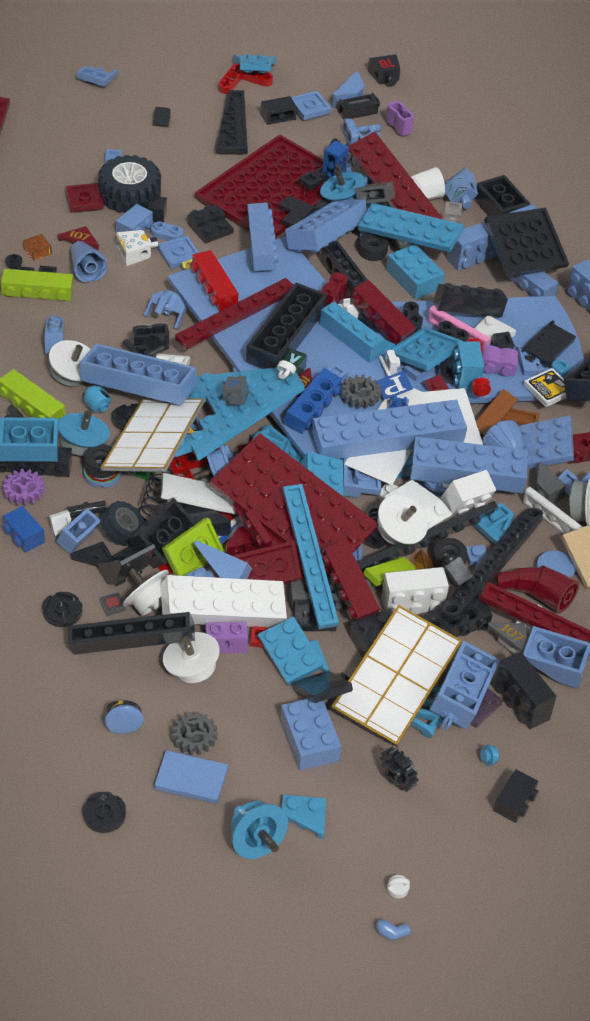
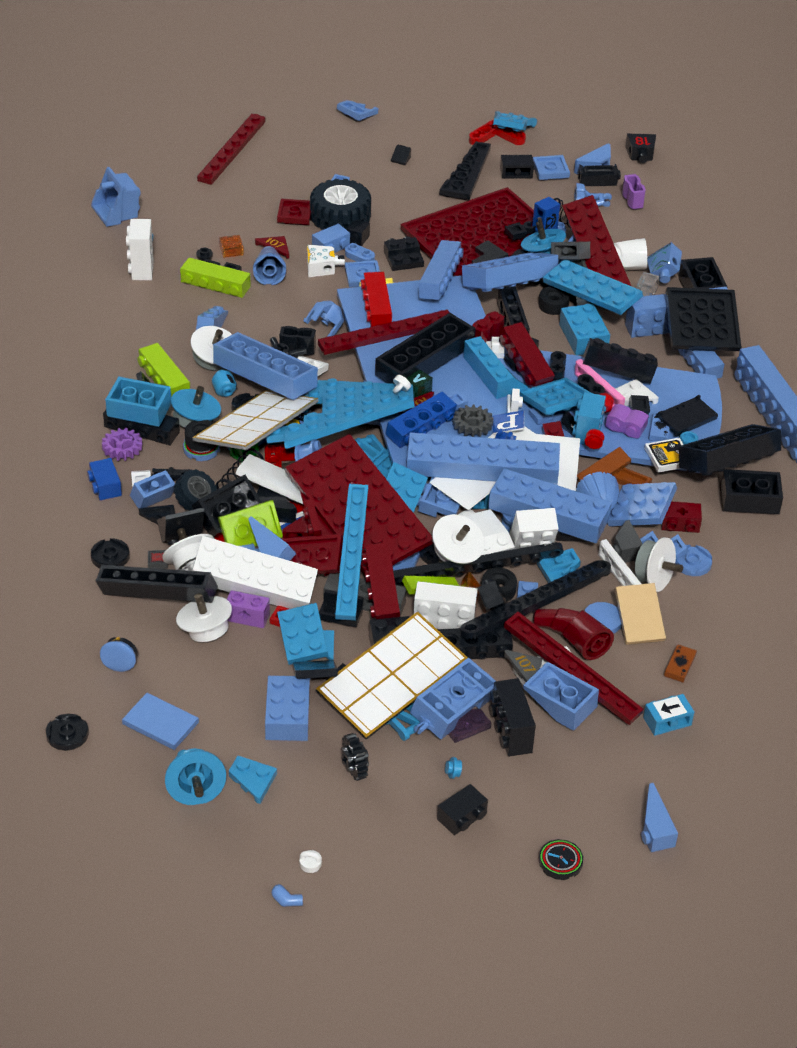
camera: 20 degrees right, 5 degrees down
(194, 733) = (179, 683): dark grey gear -> none
(236, 390) = (345, 394): dark grey brick -> none

